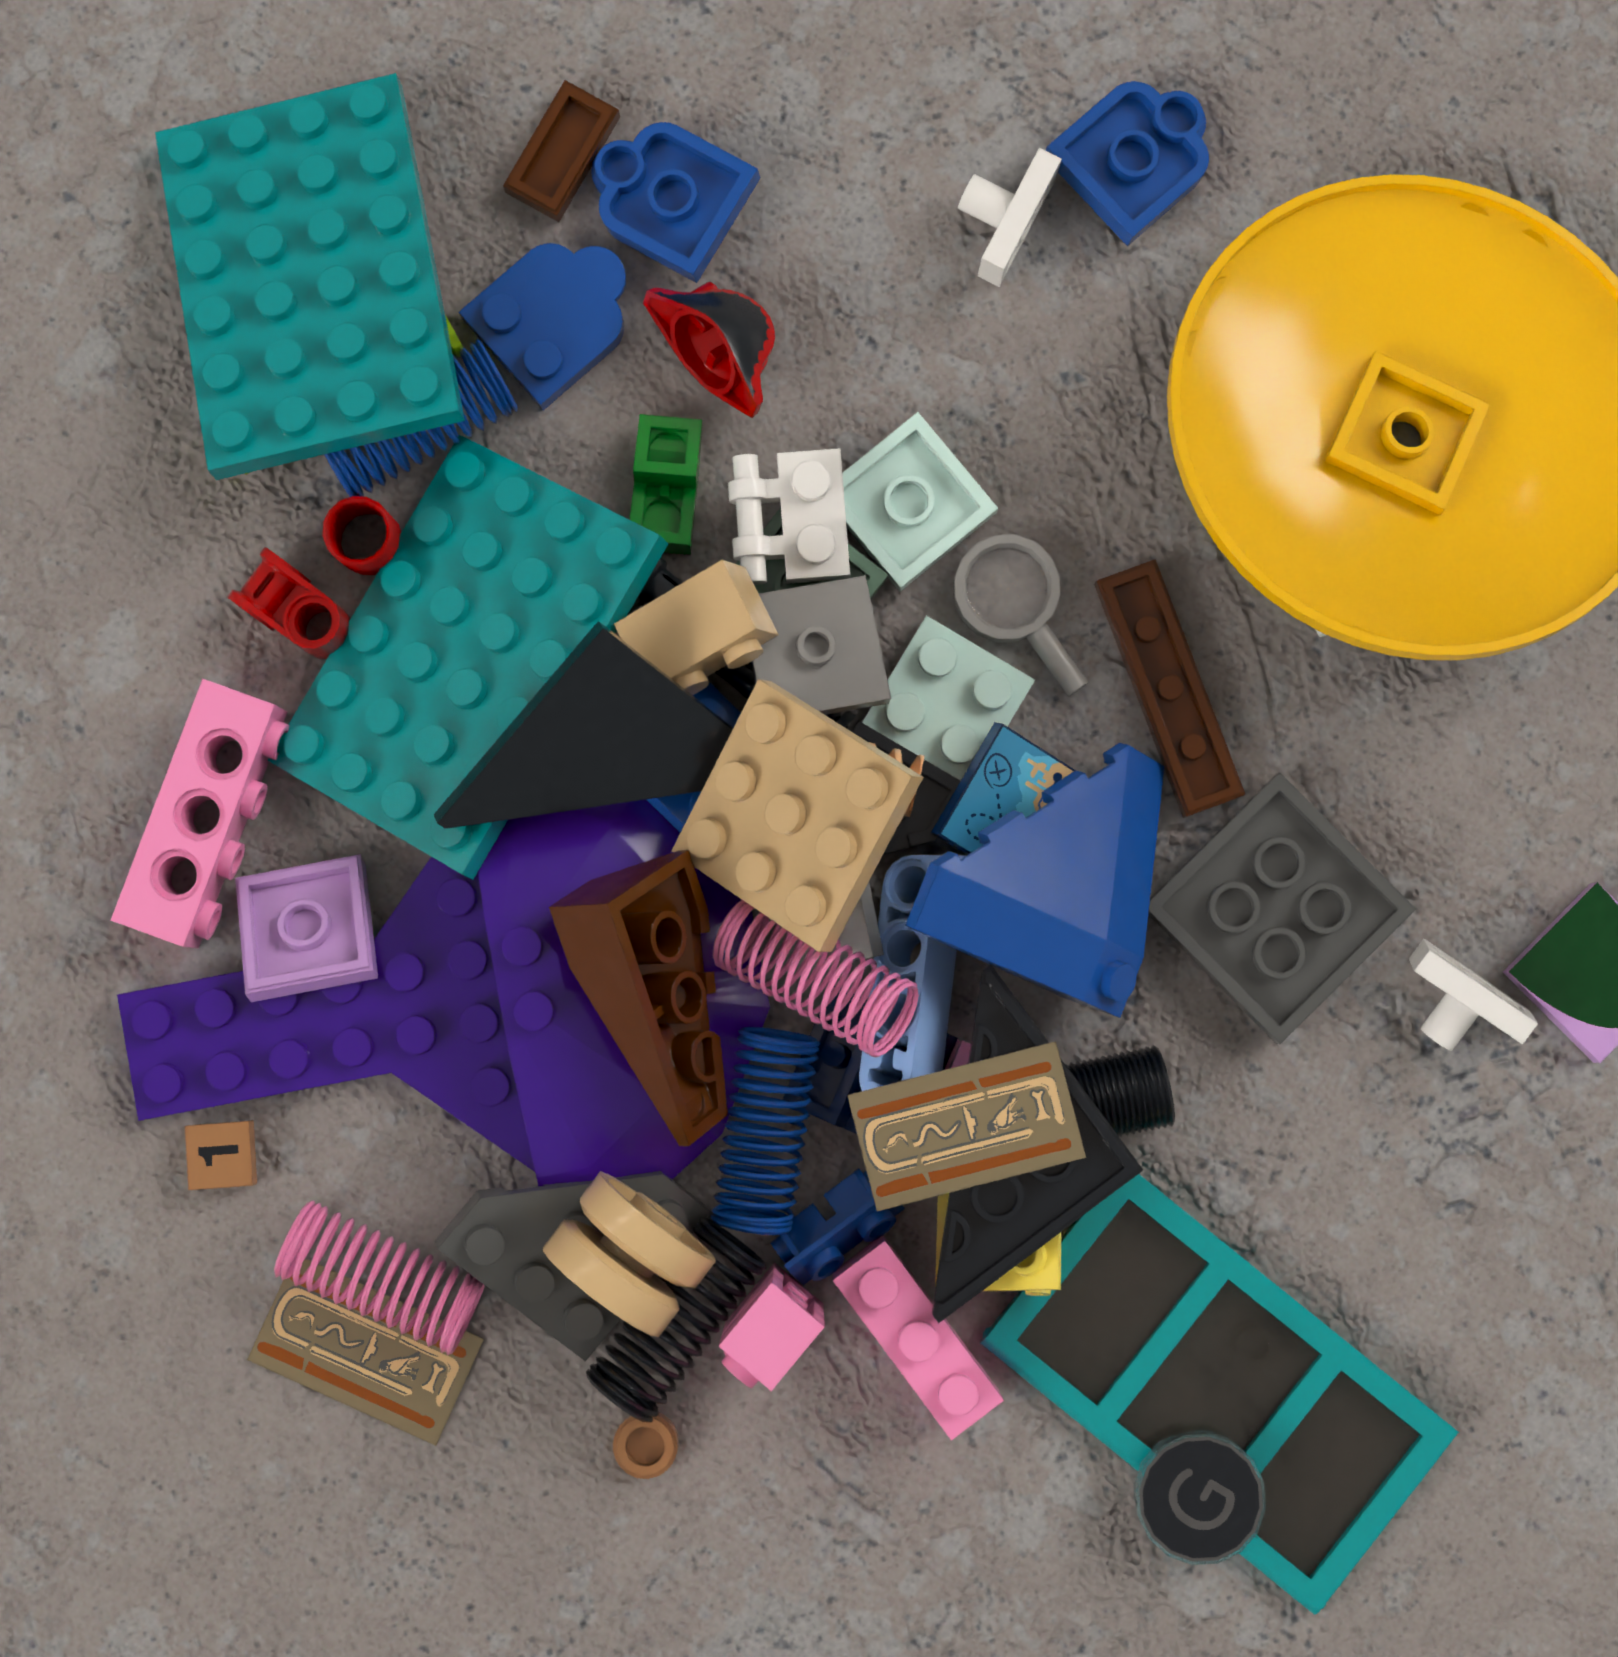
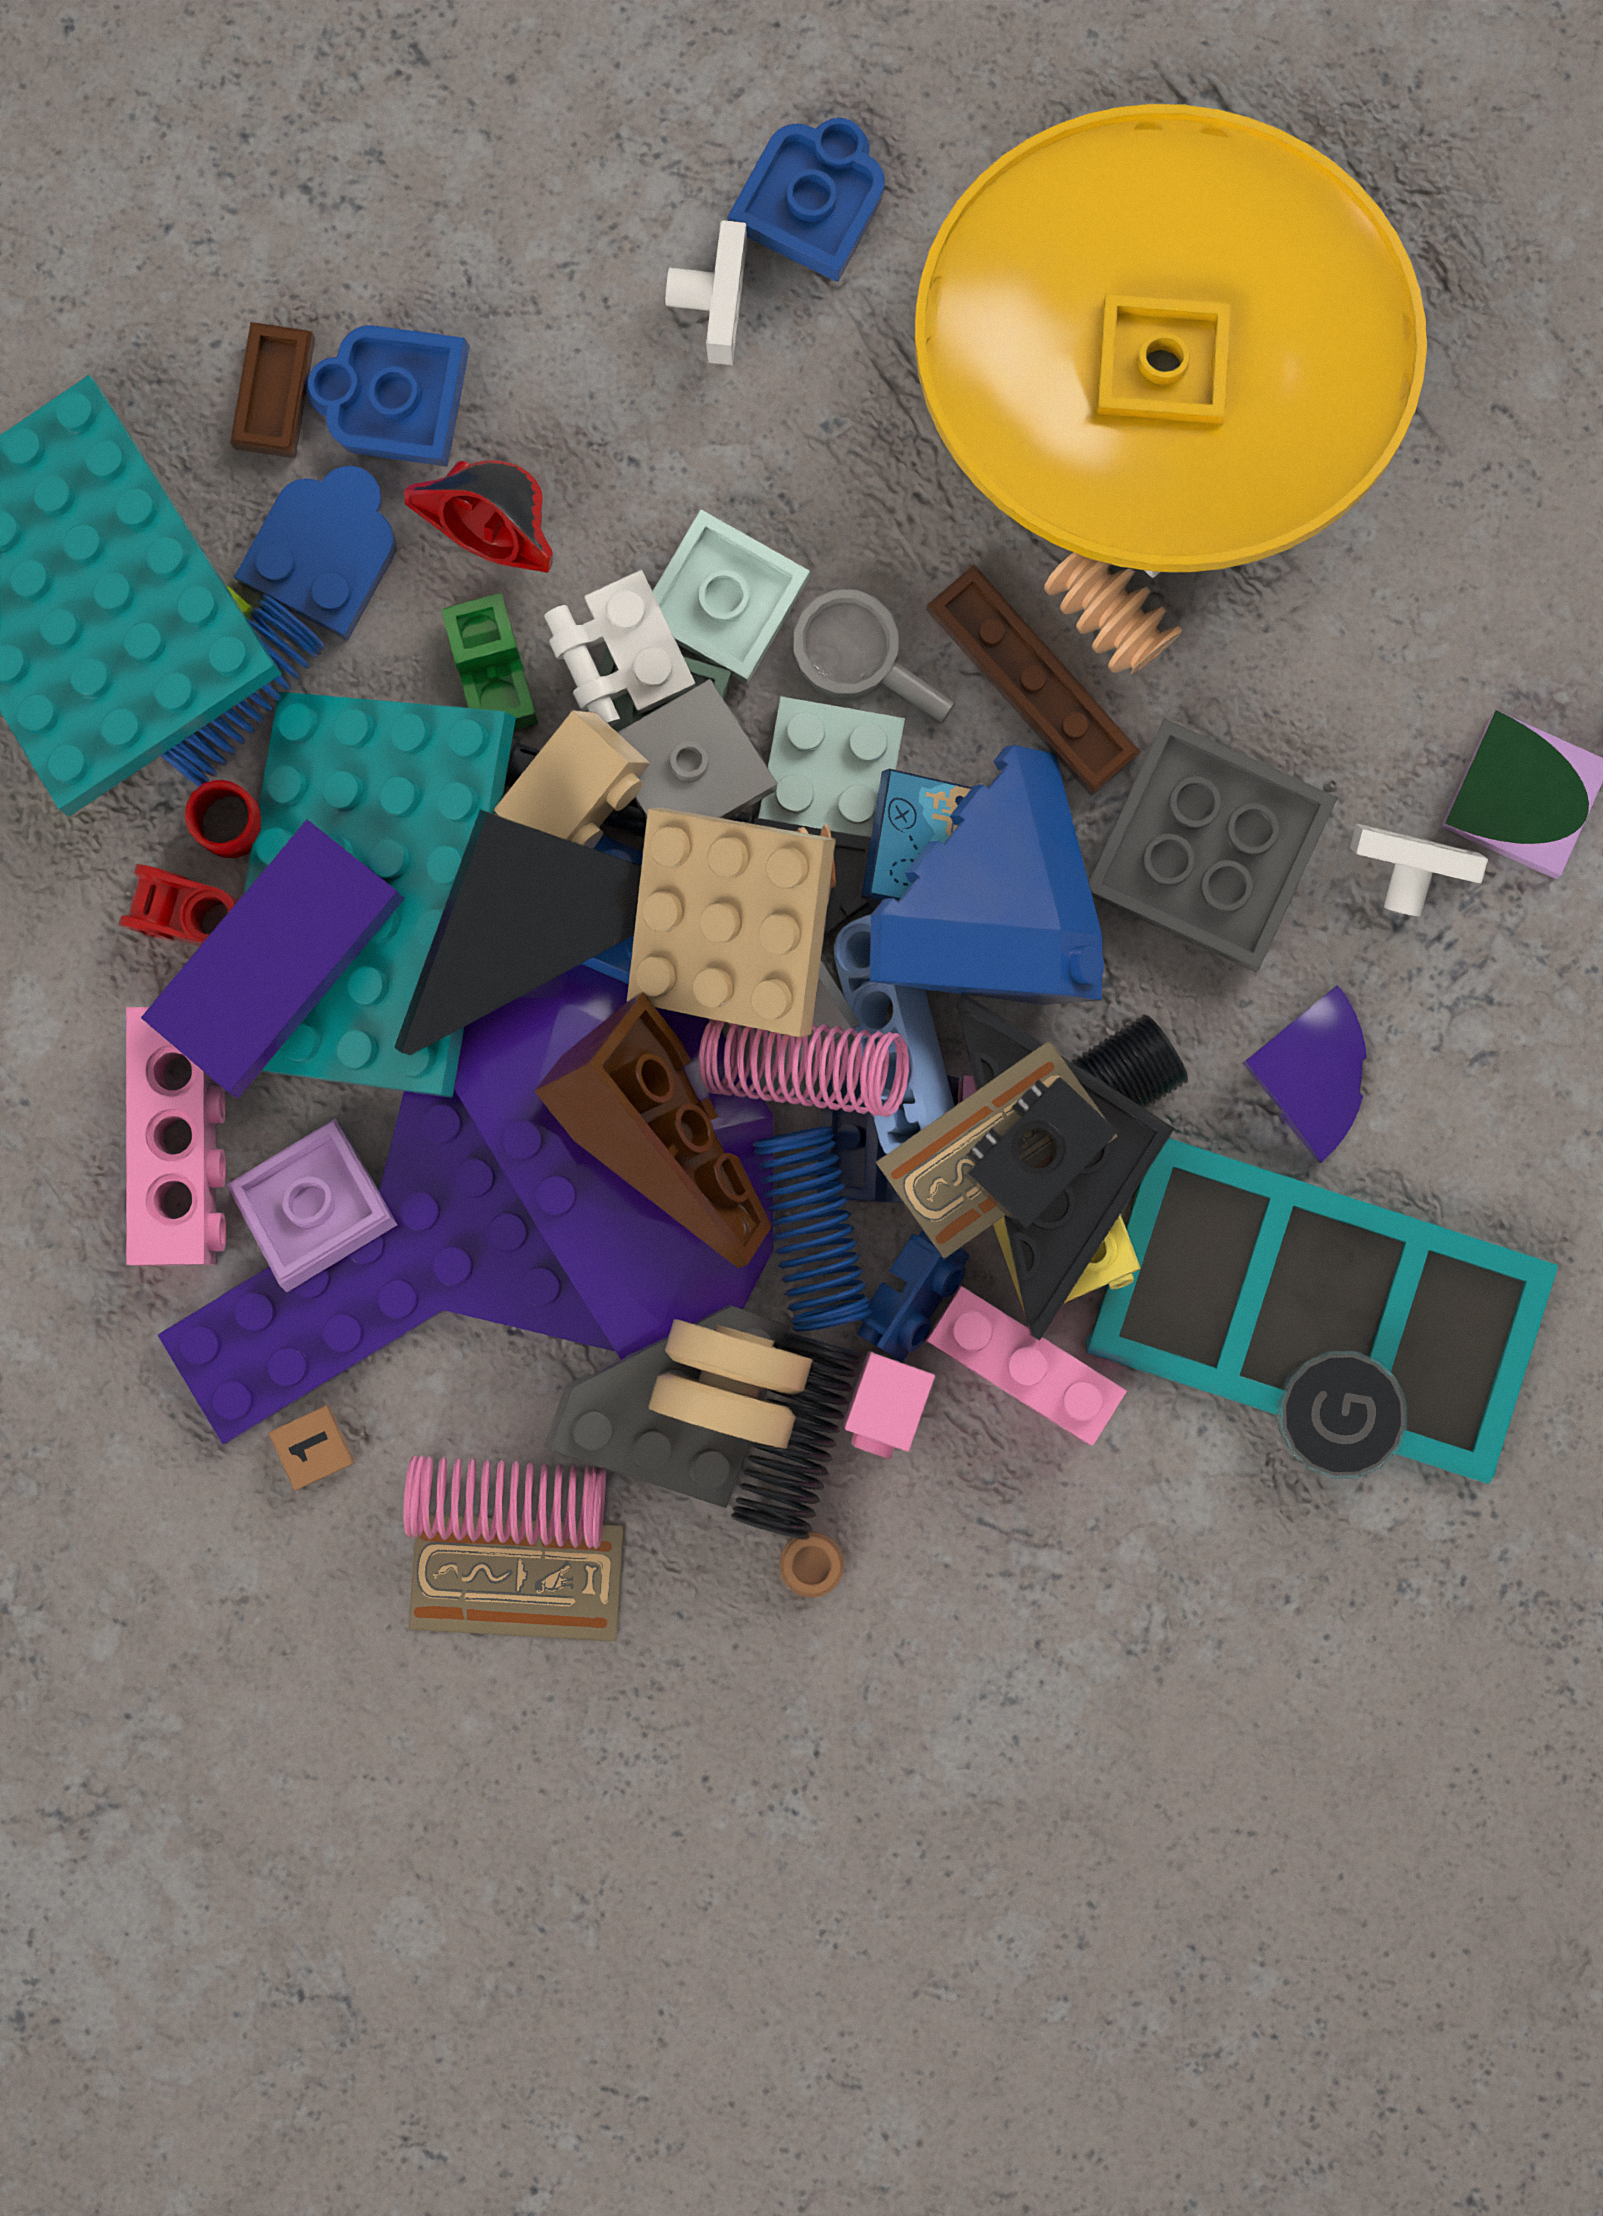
camera: 20 degrees left, 0 degrees up
(353, 686) = (272, 958): none -> dark purple tile
(1045, 1149) = (1076, 1138): none -> black brick
(1269, 652) = (1112, 611): none -> light nougat piece
(1297, 1160) = (1315, 1072): none -> dark purple brick

